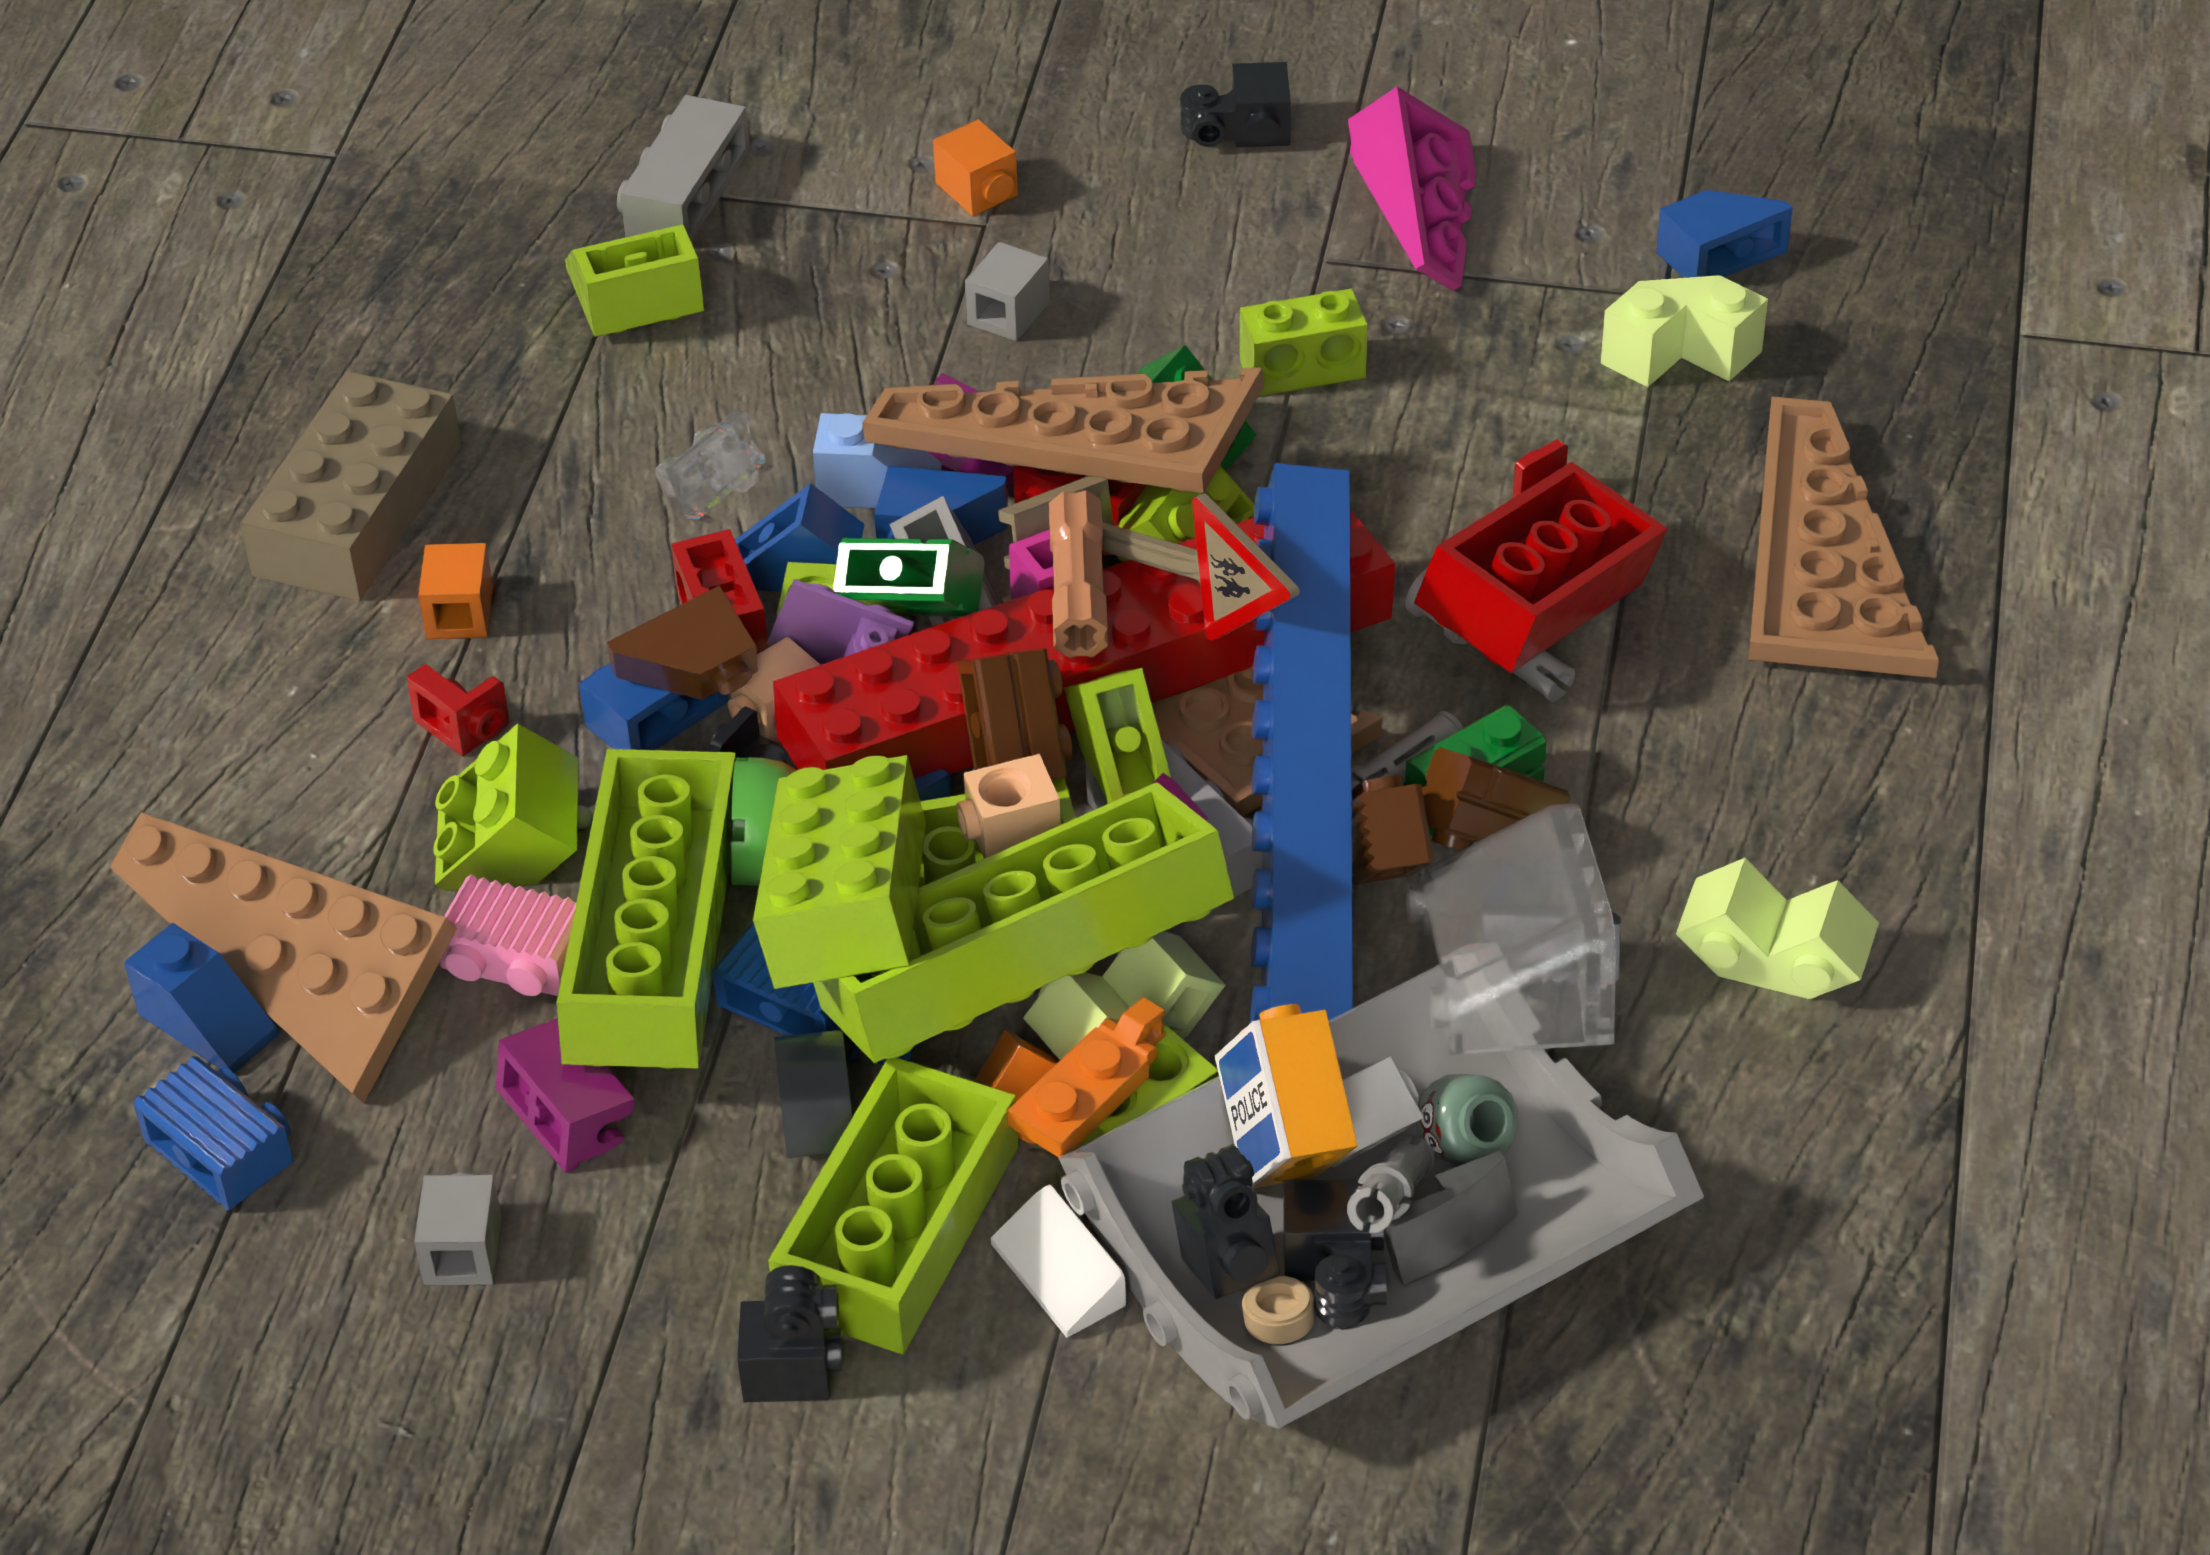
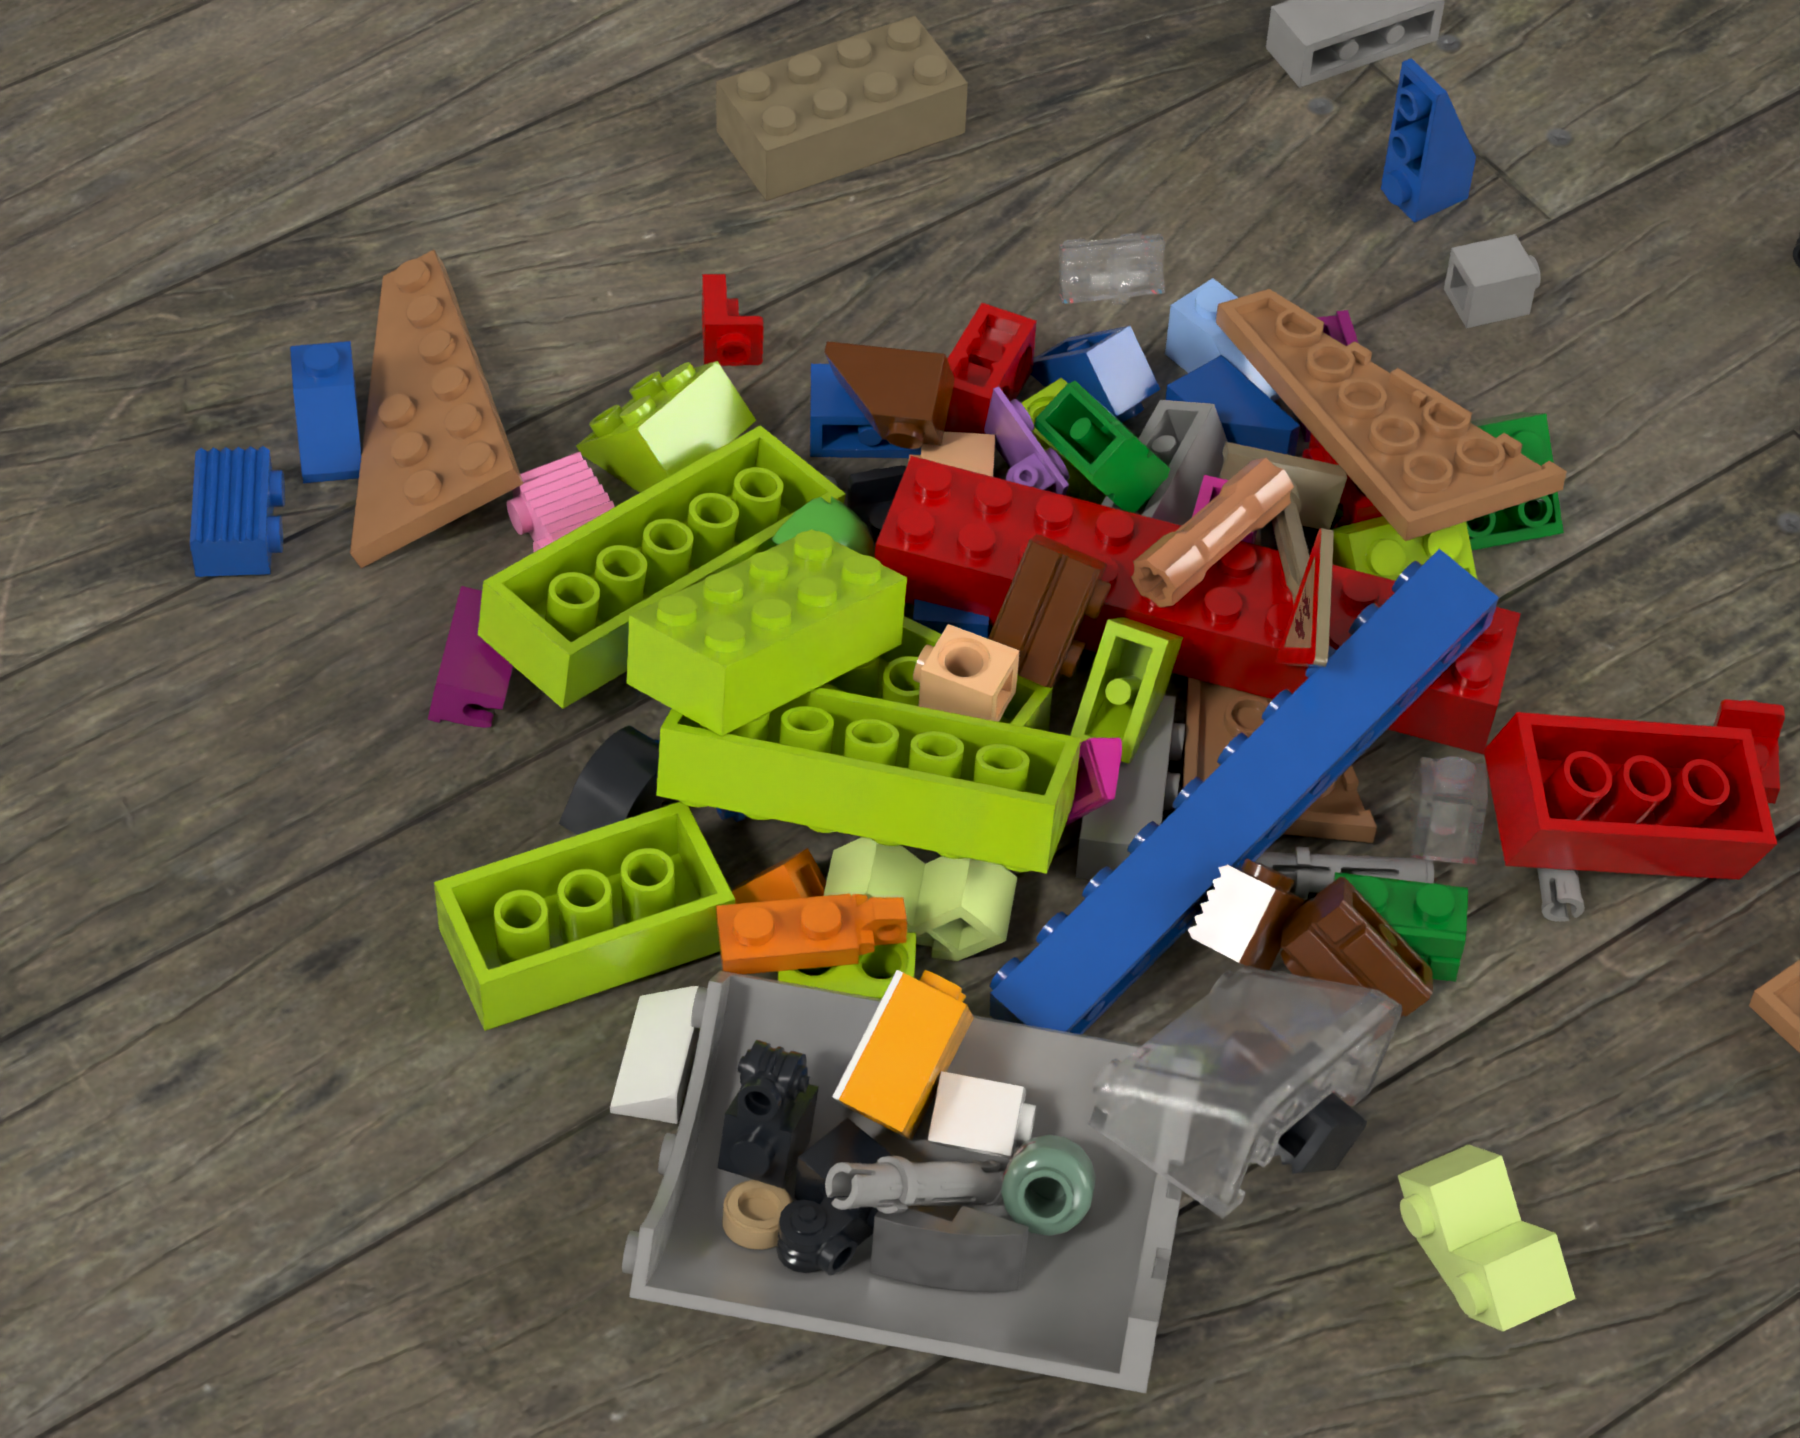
camera: 40 degrees right, 5 degrees up
(456, 591) = (822, 236): orange brick -> none
(458, 1229) = (301, 702): light grey brick -> none
(637, 280) = (1214, 85): lime slope -> none
(790, 1338) = (404, 956): black brick -> none
(865, 217) = (1427, 150): none -> blue slope
(975, 167) = (1582, 164): orange brick -> none
(1305, 341) = (1676, 481): lime brick -> none
(1421, 665) = (1448, 809): none -> clear slope

